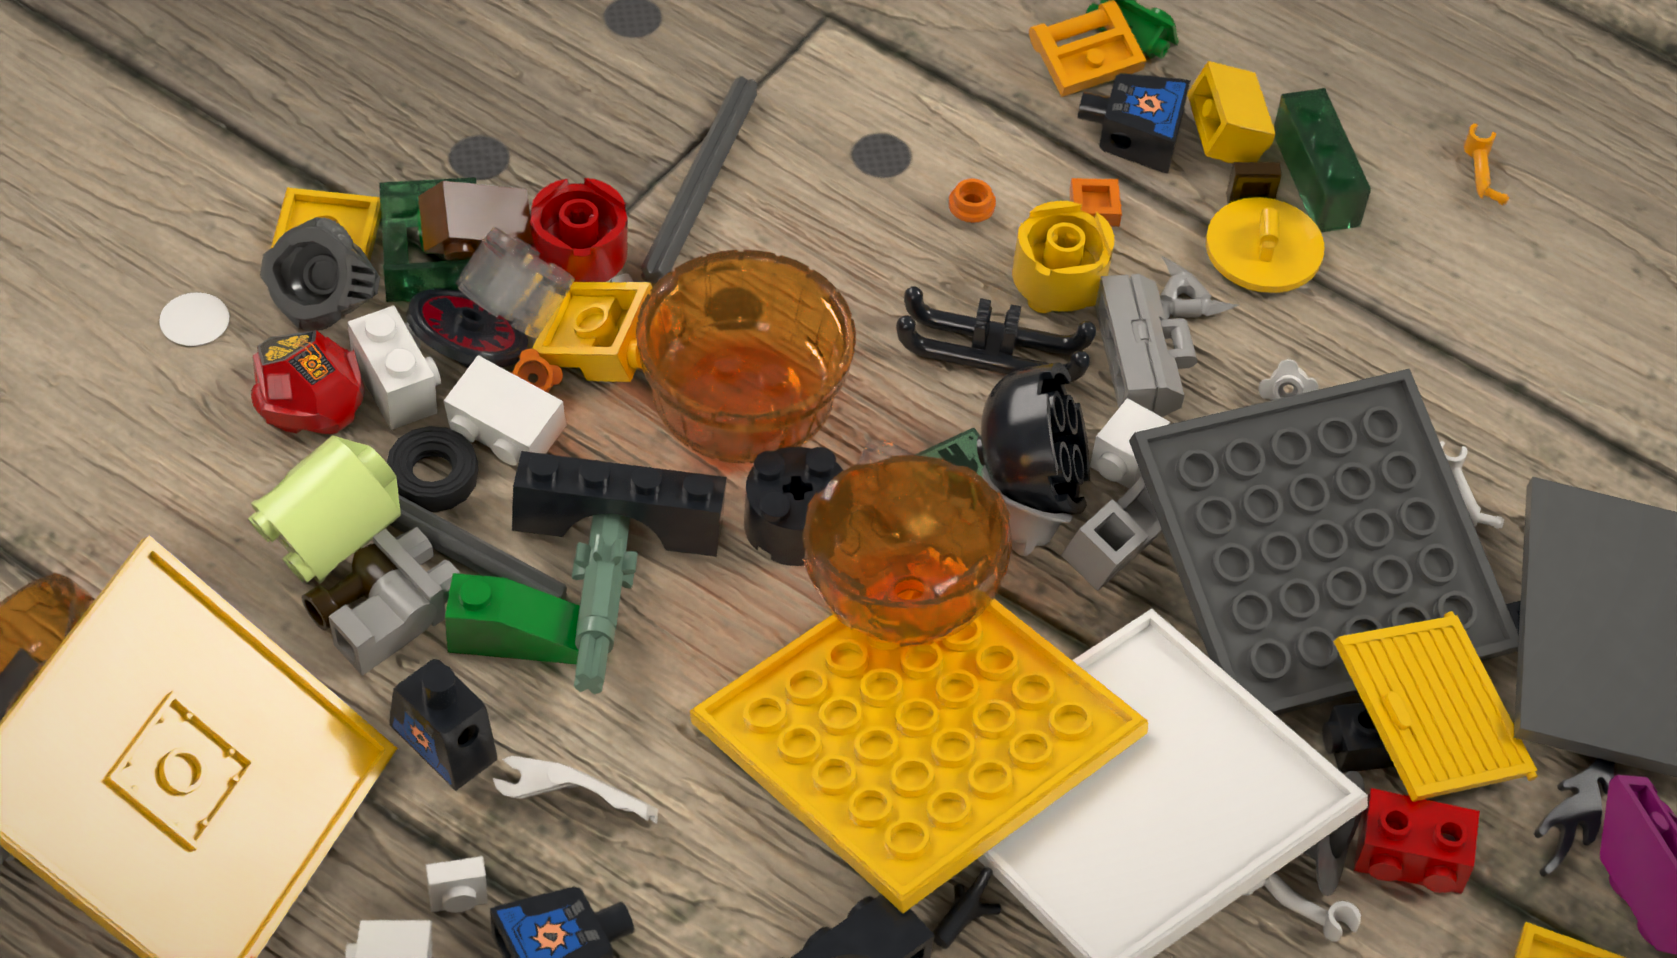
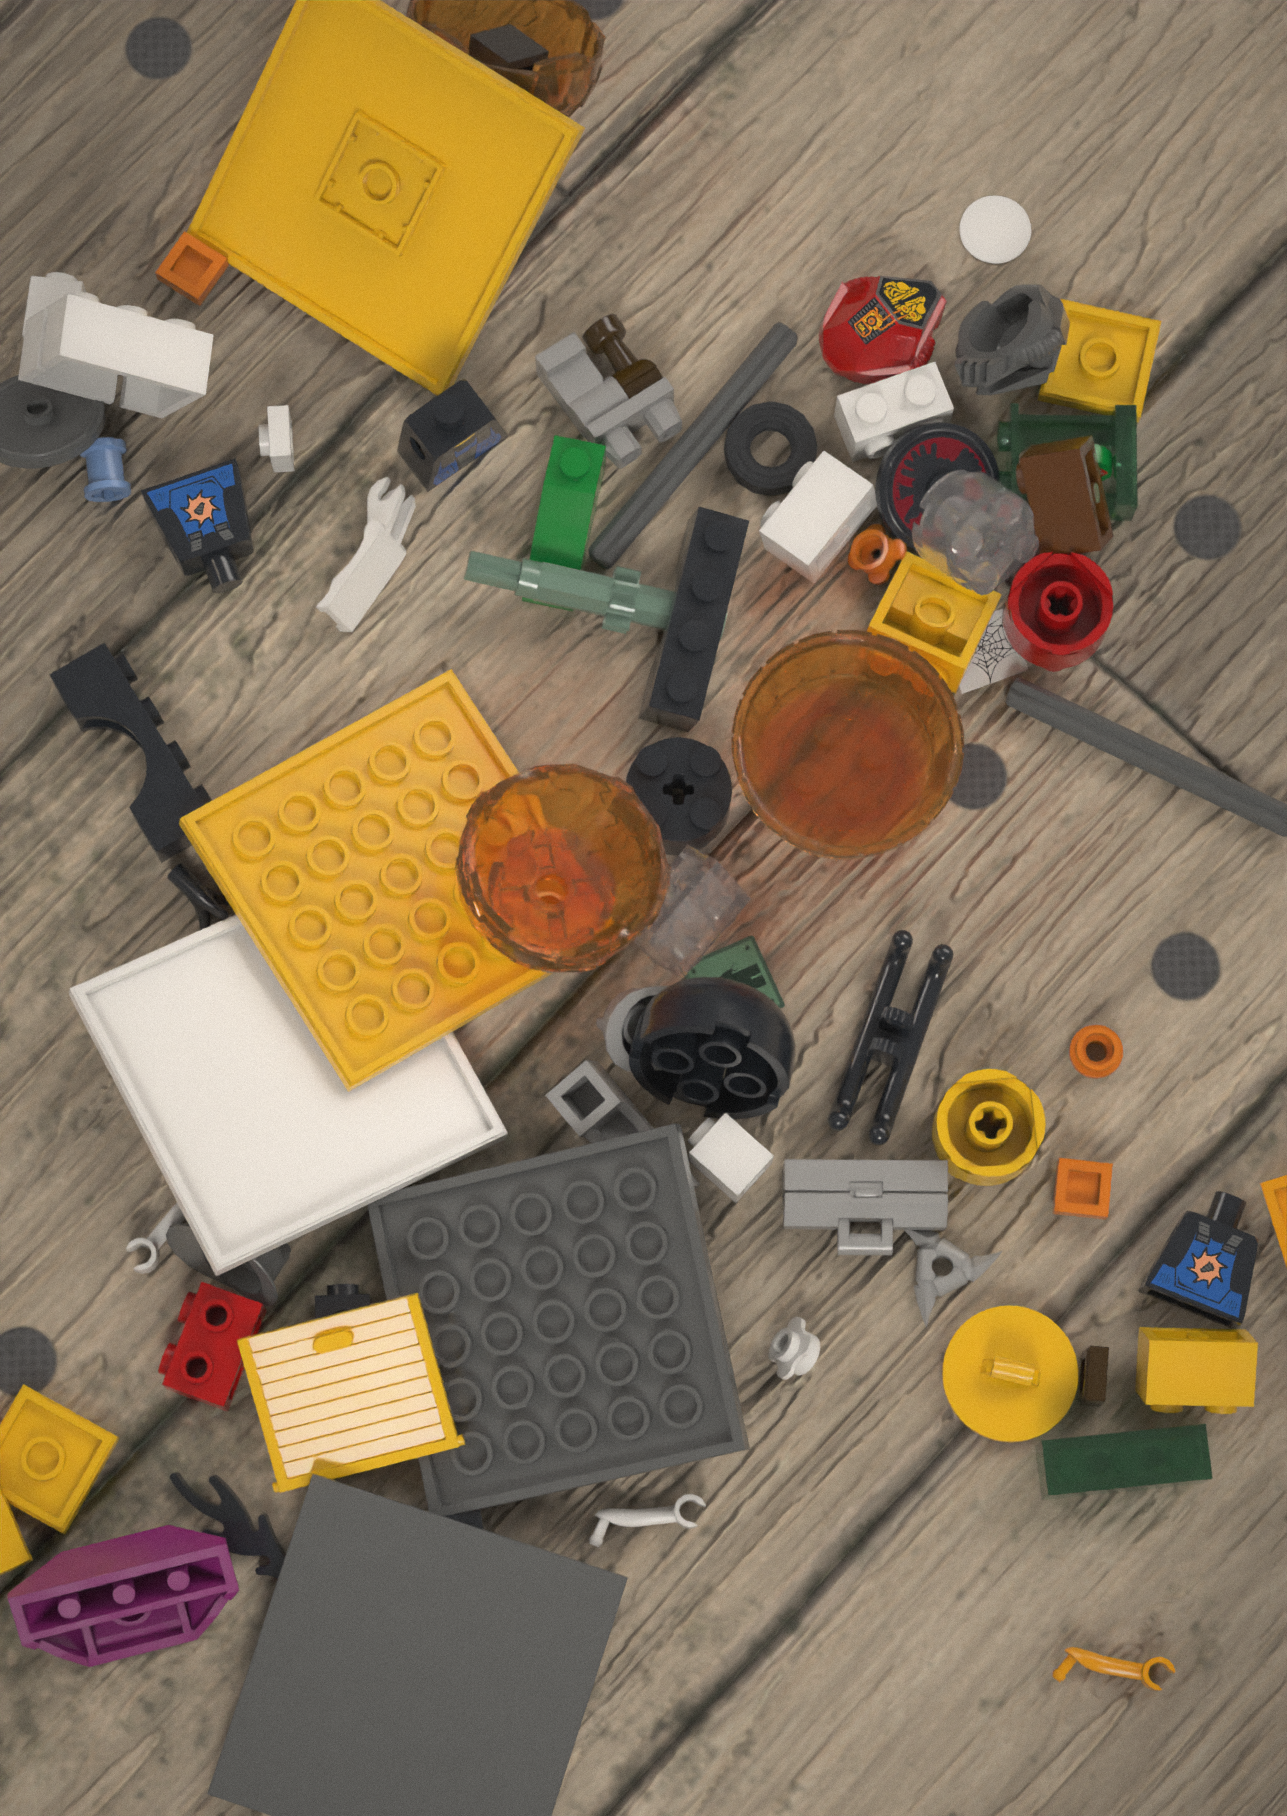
camera: 100 degrees right, 25 degrees up
(328, 507) = (691, 329): yellowish green cylinder -> none

